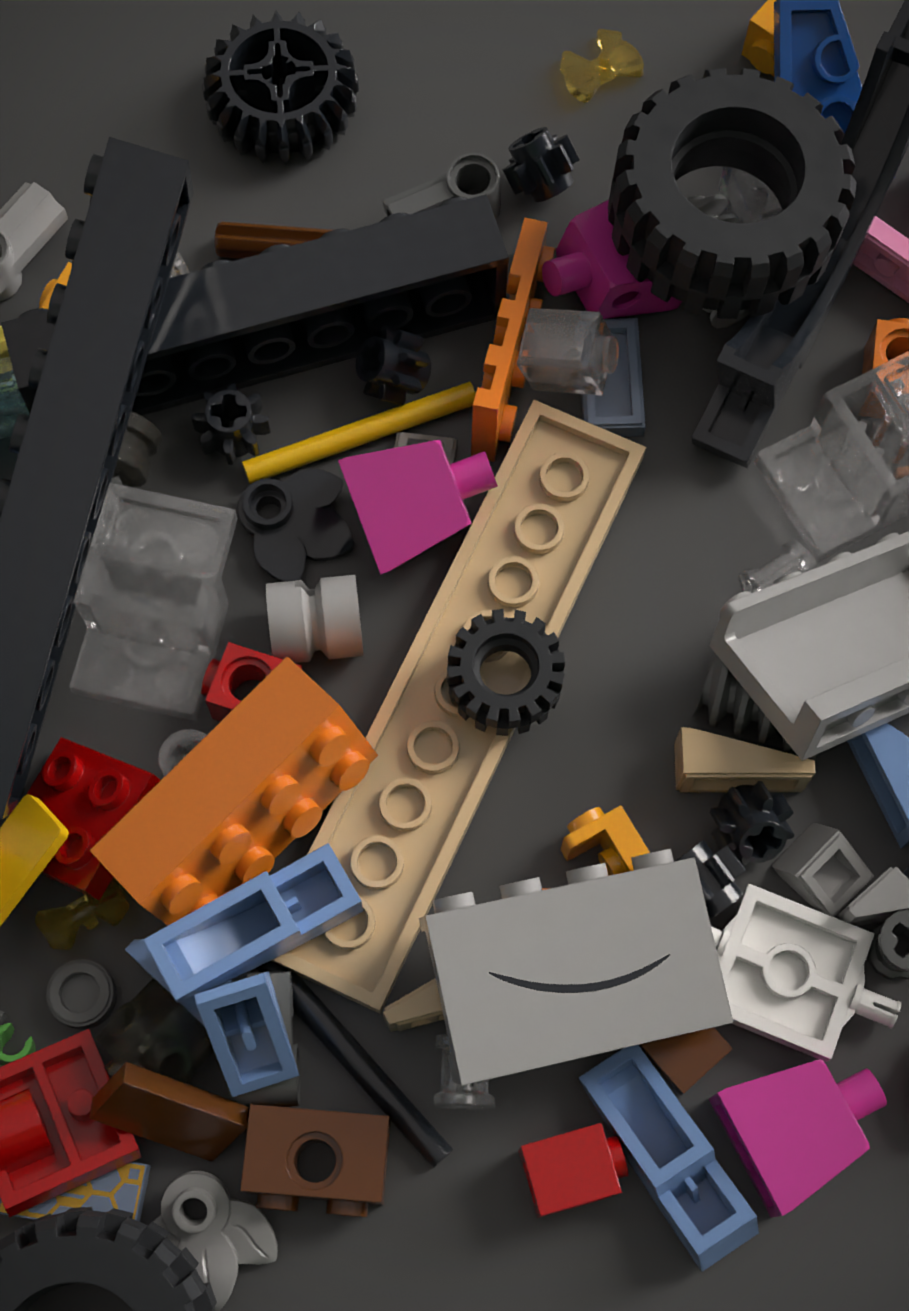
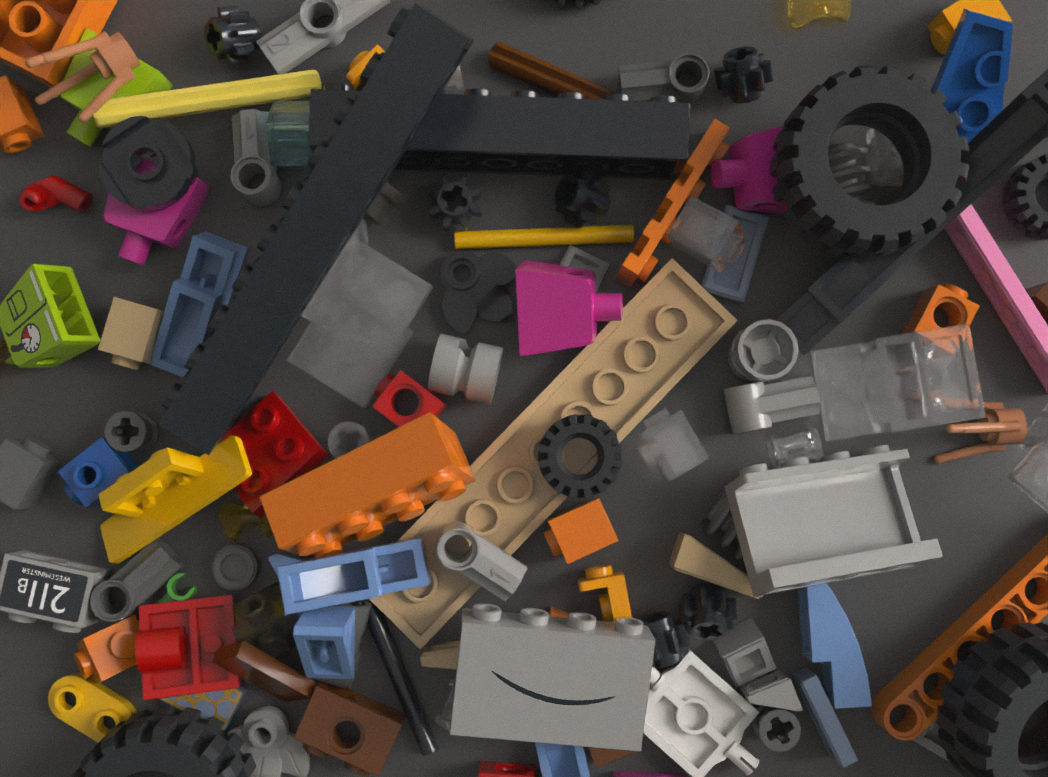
camera: 25 degrees right, 15 degrees up
(426, 853) = (482, 562): none -> light grey piece
(542, 772) = (580, 531): none -> orange brick
(619, 627) = (670, 444): none -> clear brick
(692, 472) = (763, 351): none -> light grey wheel
(715, 543) = (760, 405): none -> light grey piece

